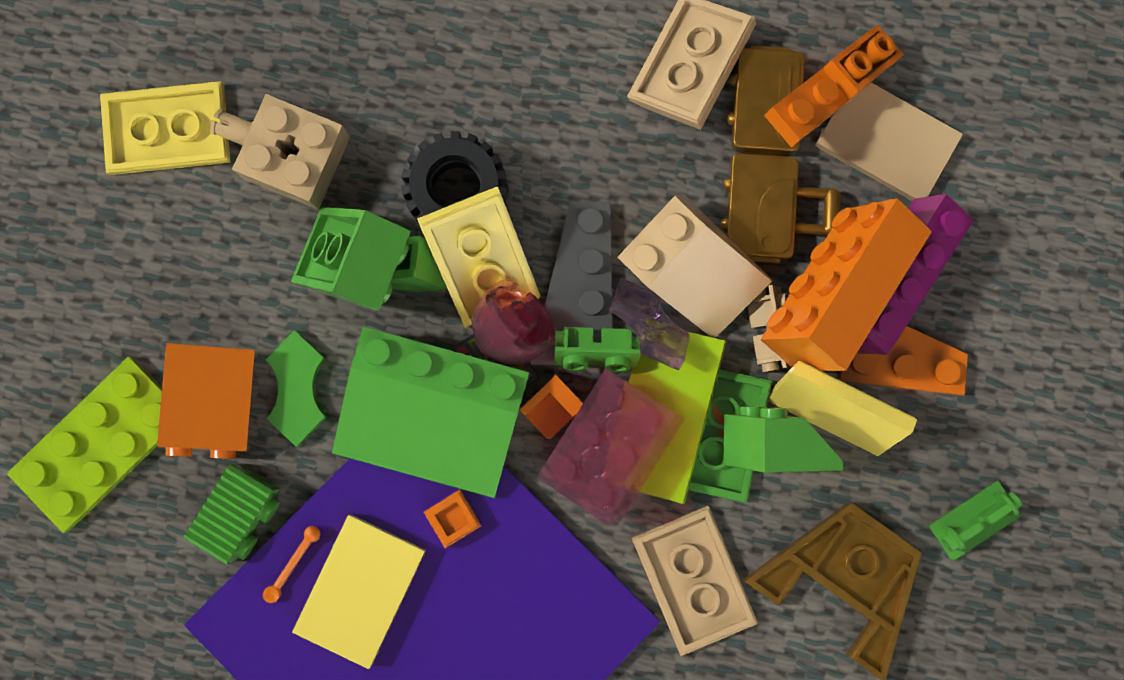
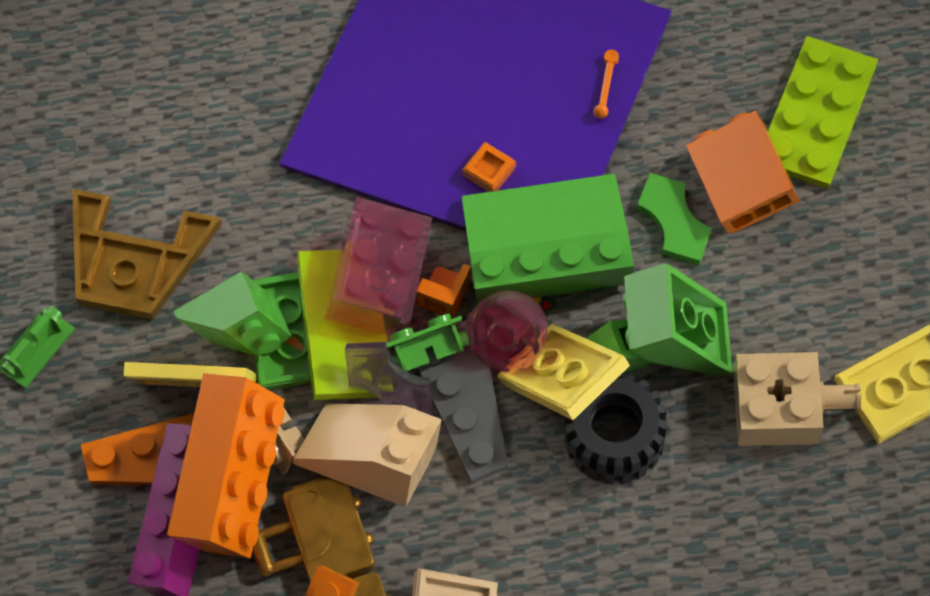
camera: 160 degrees right, 20 degrees down
(233, 514) = (674, 102): bright green brick -> none
(359, 591) = (540, 86): light yellow tile -> none
(694, 580) = (264, 208): tan tile -> none

